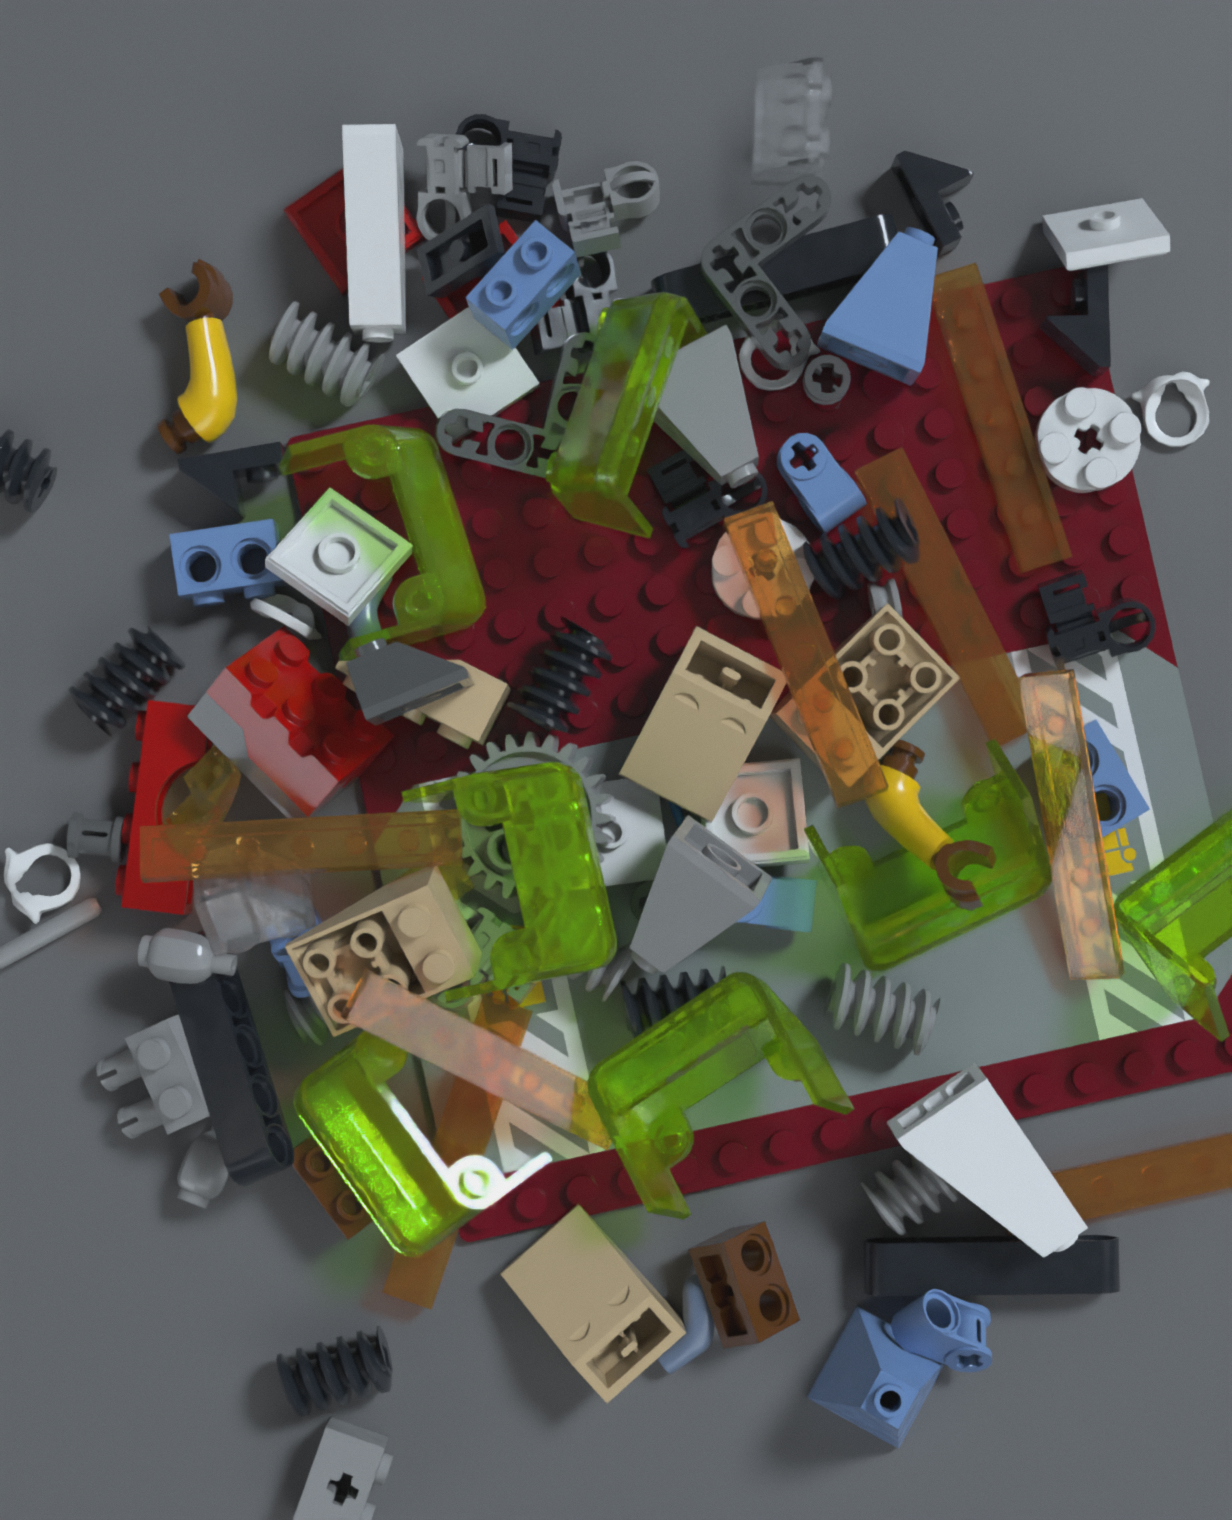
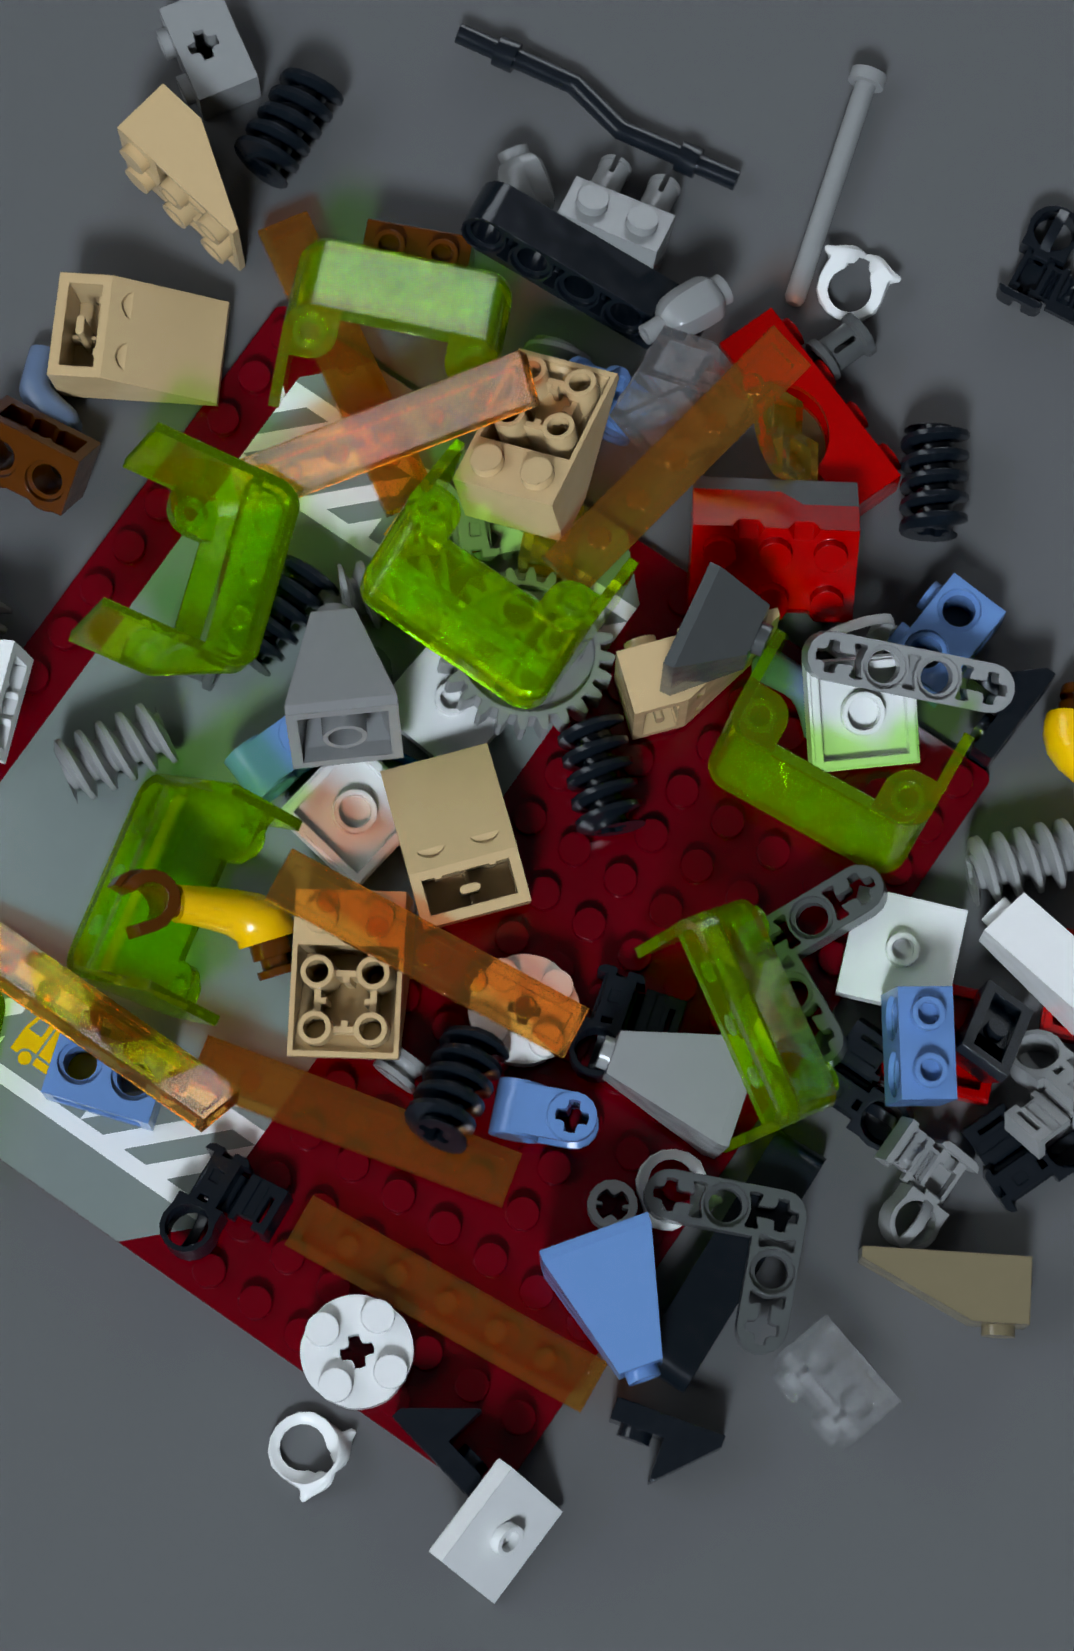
camera: 140 degrees right, 10 degrees down
(124, 1280) = (686, 158): none -> black bar
(278, 549) = (908, 671): none -> light grey beam
(441, 1424) = (173, 157): none -> tan slope
(633, 106) = (968, 1286): none -> dark tan slope

